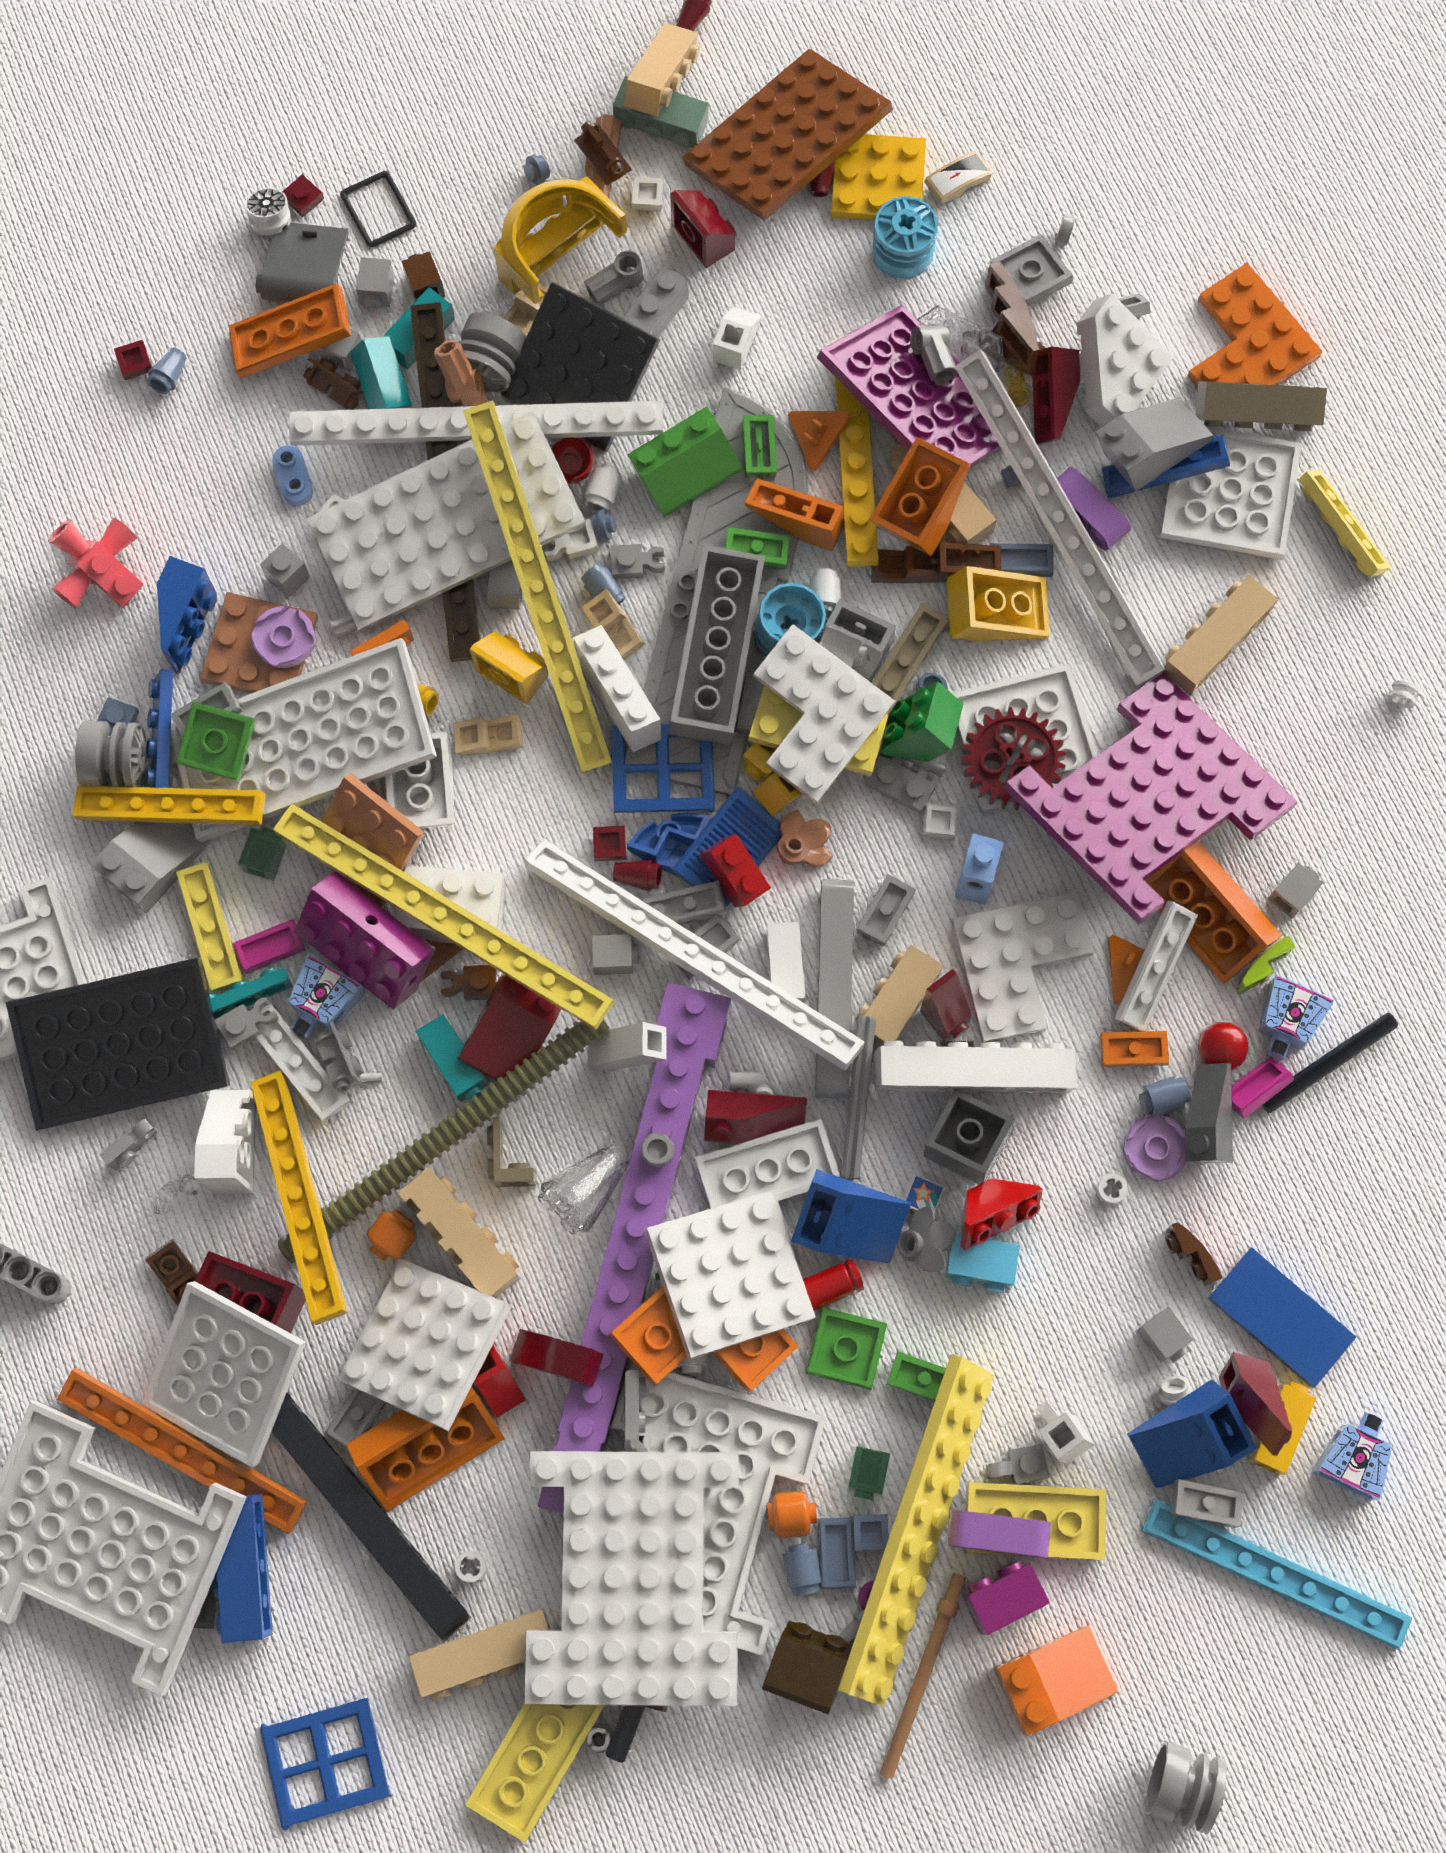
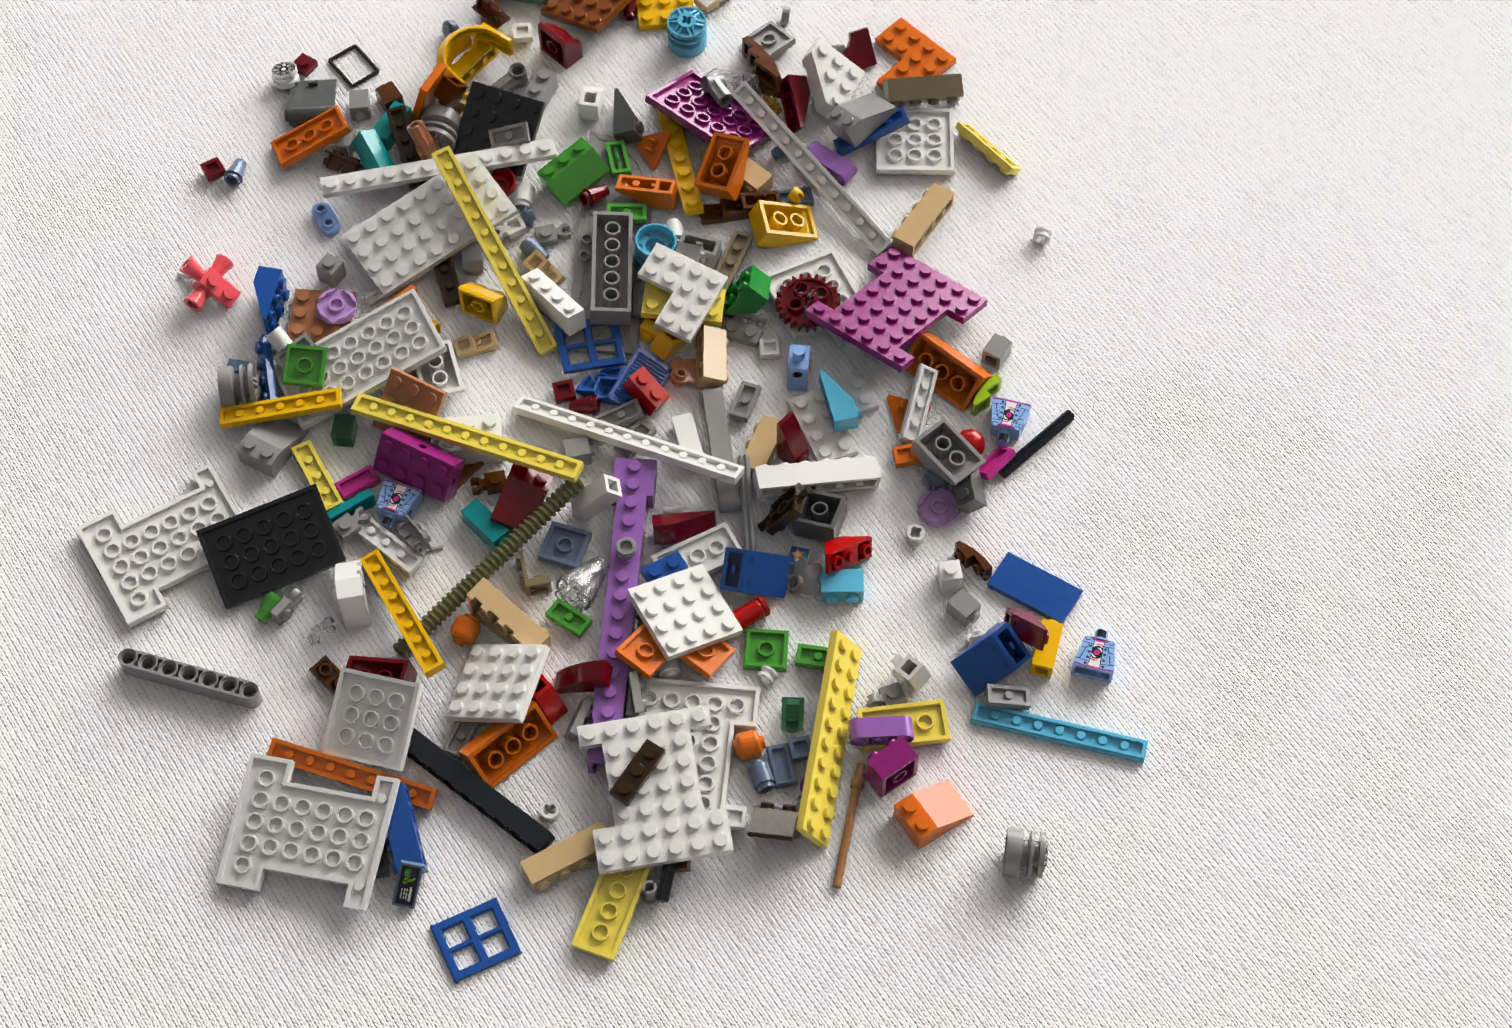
camera: 10 degrees left, 15 degrees down
(101, 1137) = (268, 603): none -> bright green cone
(184, 685) = (278, 339): none -> white axle
(234, 1660) = (407, 884): none -> tile
(478, 292) = (425, 95): none -> orange tile
(514, 293) = (450, 91): none -> reddish brown brick
(548, 1407) = (583, 711): none -> light grey plate
(553, 1241) = (569, 618): none -> bright green plate
(567, 1114) = (564, 545): none -> sand blue plate
(594, 386) = (509, 135): none -> light grey plate
(609, 1553) = (637, 772): none -> dark brown plate
(710, 507) = (593, 195): none -> dark red cone
(712, 1188) = (665, 566): none -> blue plate
(782, 383) = (625, 123): none -> dark grey slope
(841, 1396) = (767, 675): none -> white bush
(847, 827) = (711, 357): none -> brick
(916, 1122) = (785, 509): none -> dark brown plate
(1027, 560) = (795, 195): none -> yellow hinge
(1032, 951) = (839, 404): none -> medium azure slope
(1153, 1276) = (949, 576): none -> white brick
(1172, 313) = (860, 48): none -> dark red tile
(1188, 1071) = (947, 452): none -> light grey slope

